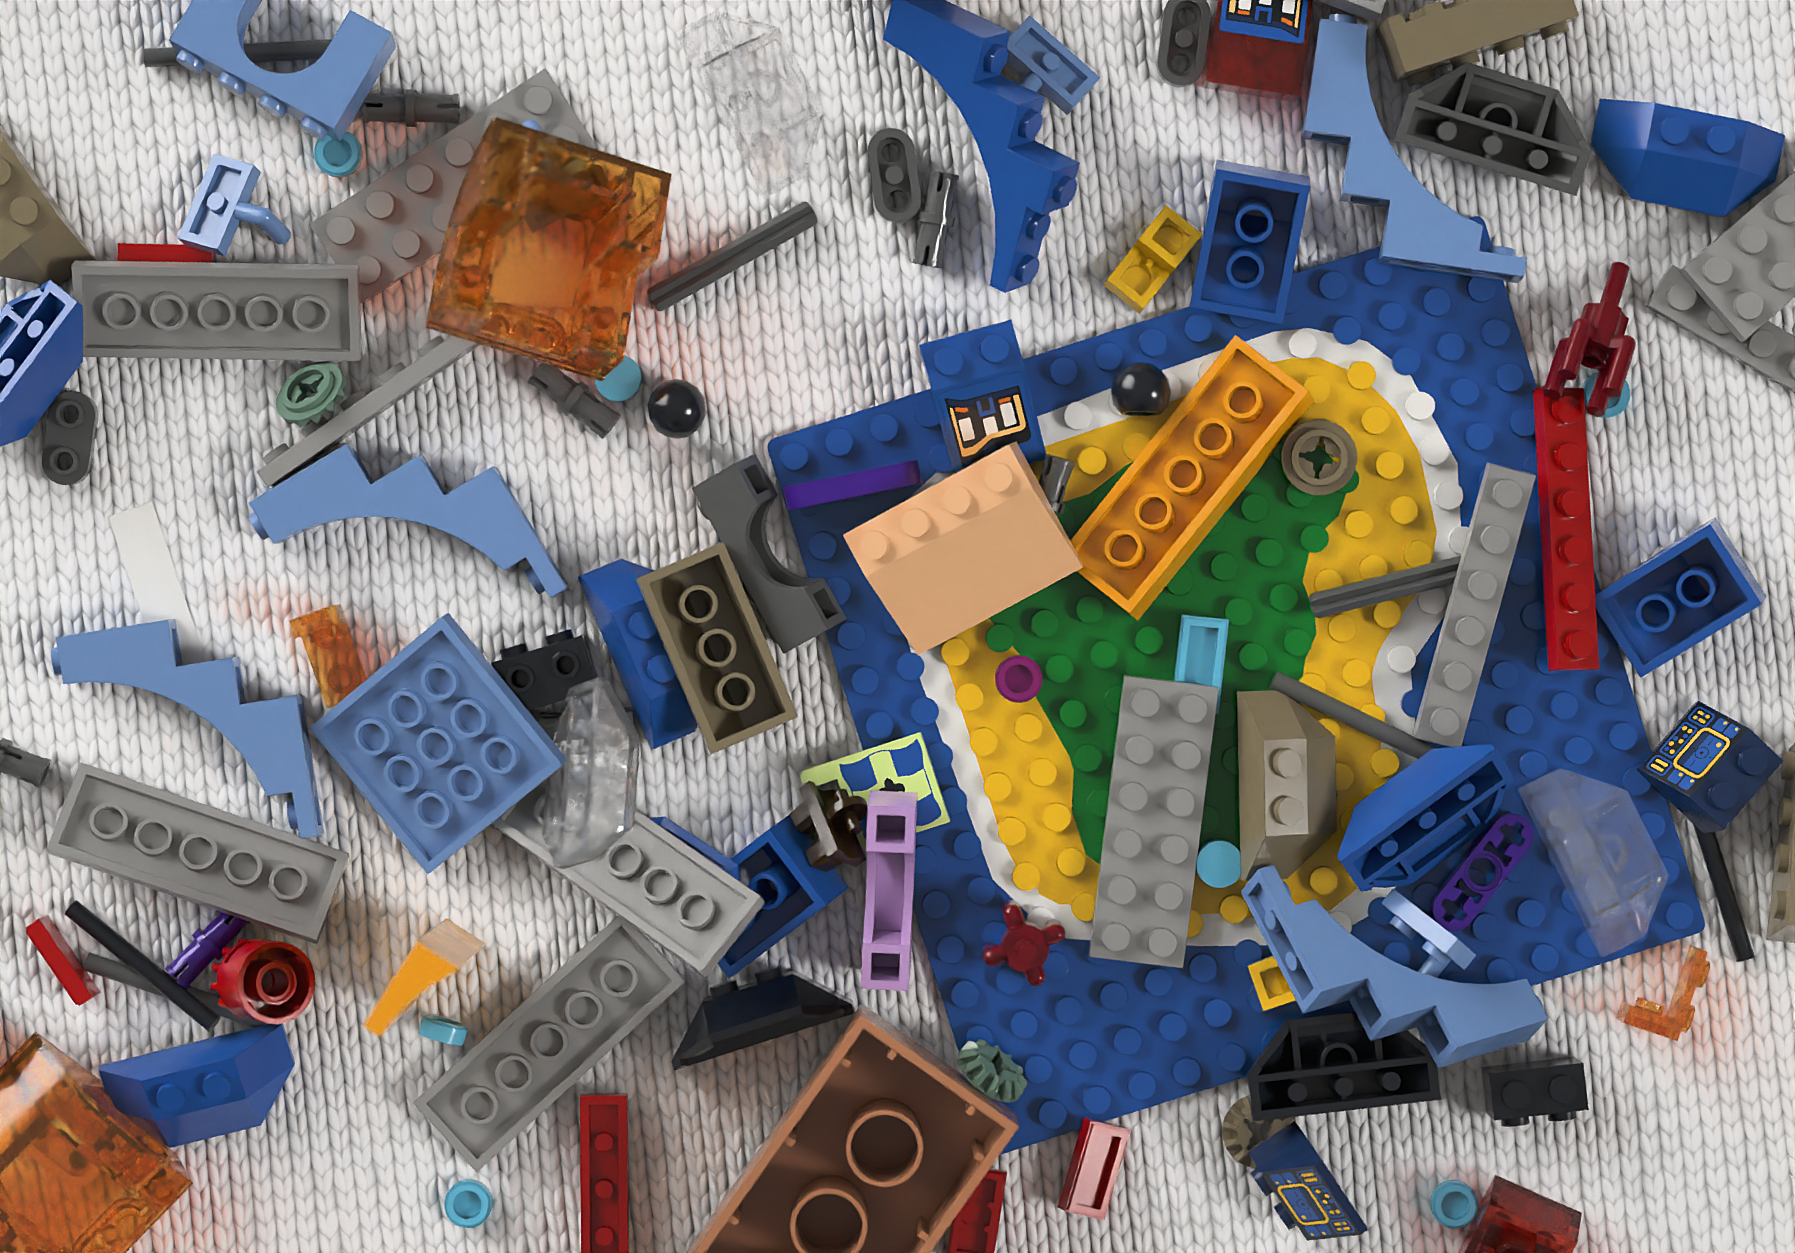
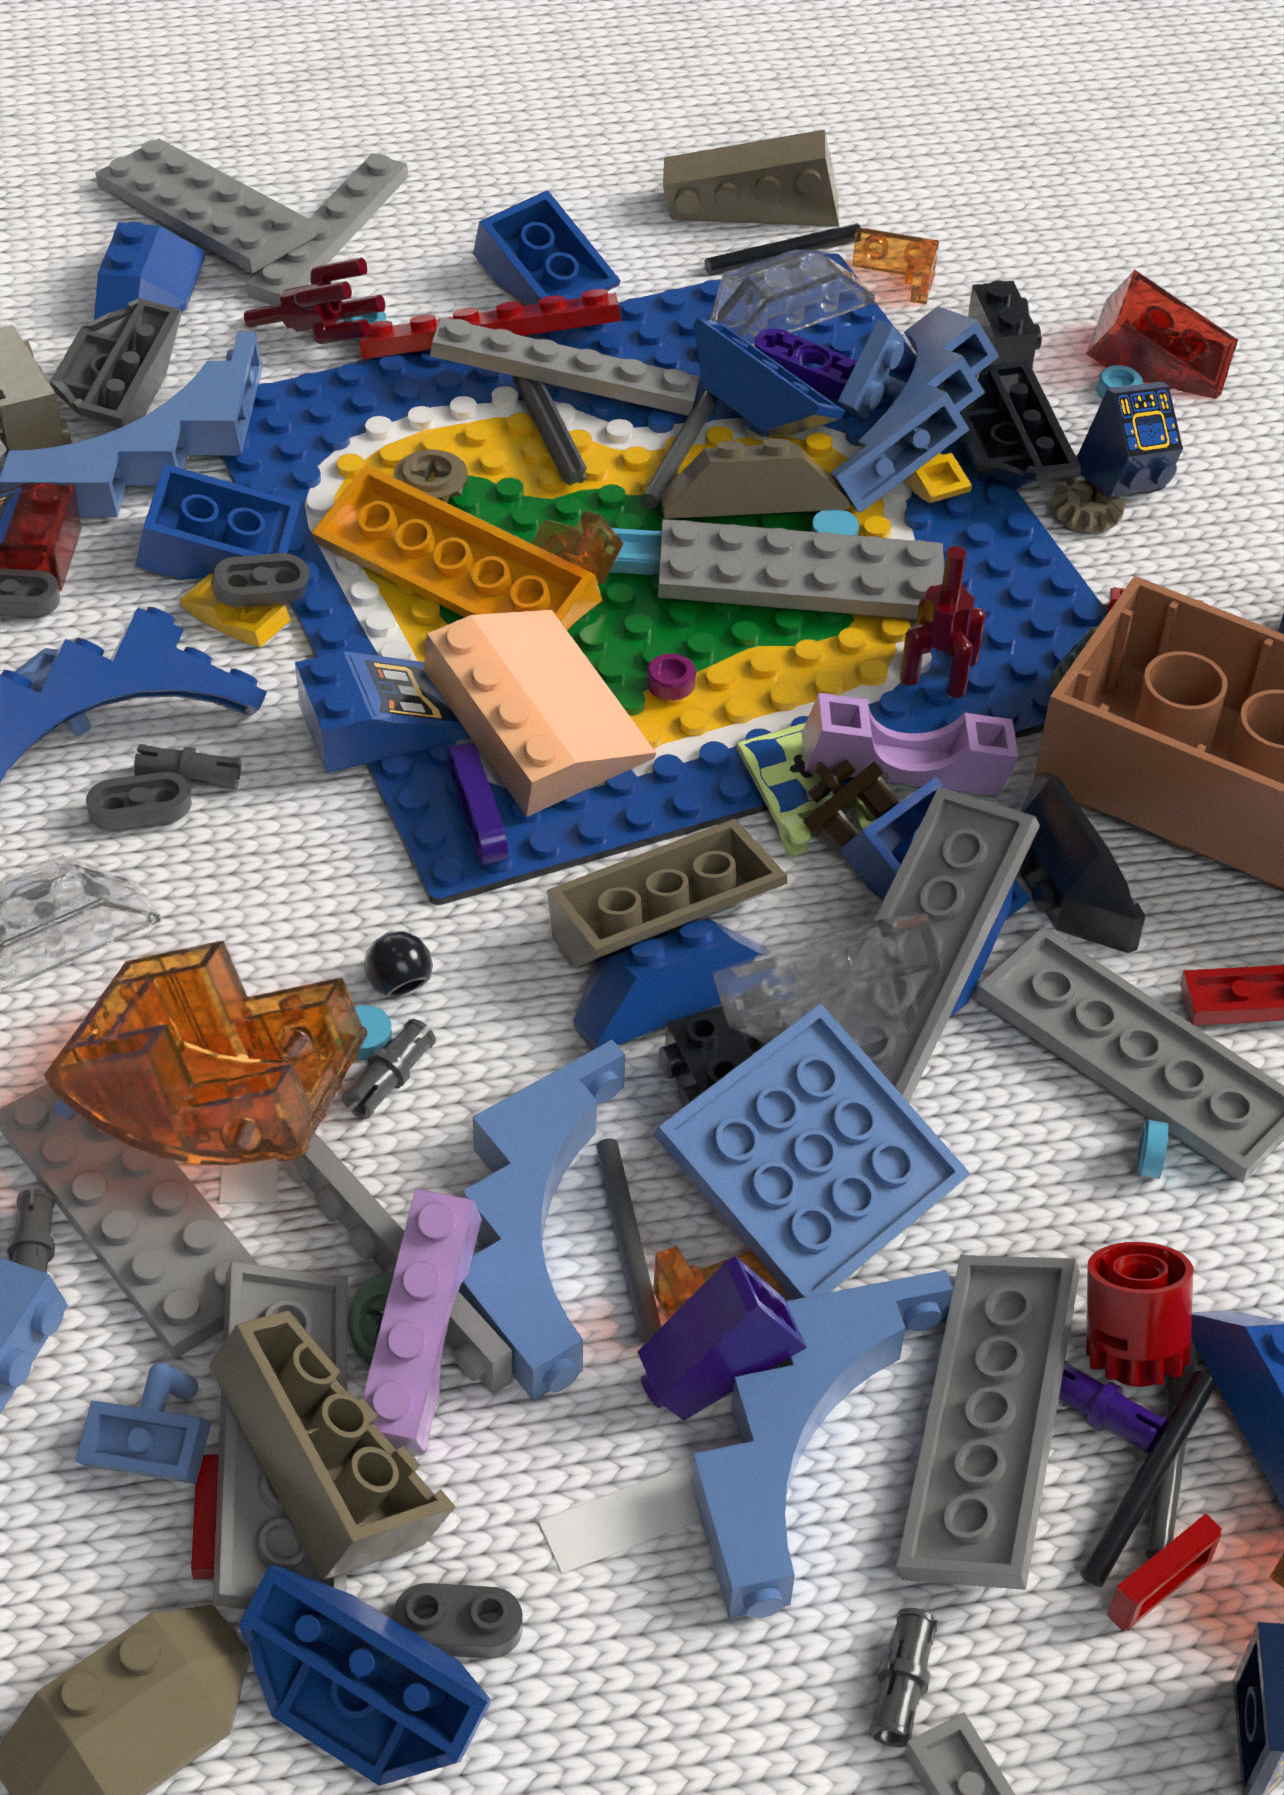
camera: 90 degrees left, 40 degrees down
(173, 342) = (321, 1451): none -> dark tan wedge
(254, 650) = (719, 1333): none -> dark purple slope
(290, 417) = (416, 1316): none -> lavender arch
(337, 157) = (85, 1328): medium azure tile -> none
(393, 588) = (628, 1239): none -> dark grey bar
(431, 959) = (1102, 1070): light orange arch -> none
(732, 256) = (218, 926): dark grey axle -> none
(738, 507) = (503, 900): dark grey arch -> none
(1140, 390) = (368, 589): black piece -> none
(1161, 284) = (256, 580): none -> dark grey plate
(1183, 597) = (587, 545): none -> clear orange bracket
(1709, 767) = (696, 236): slope -> none

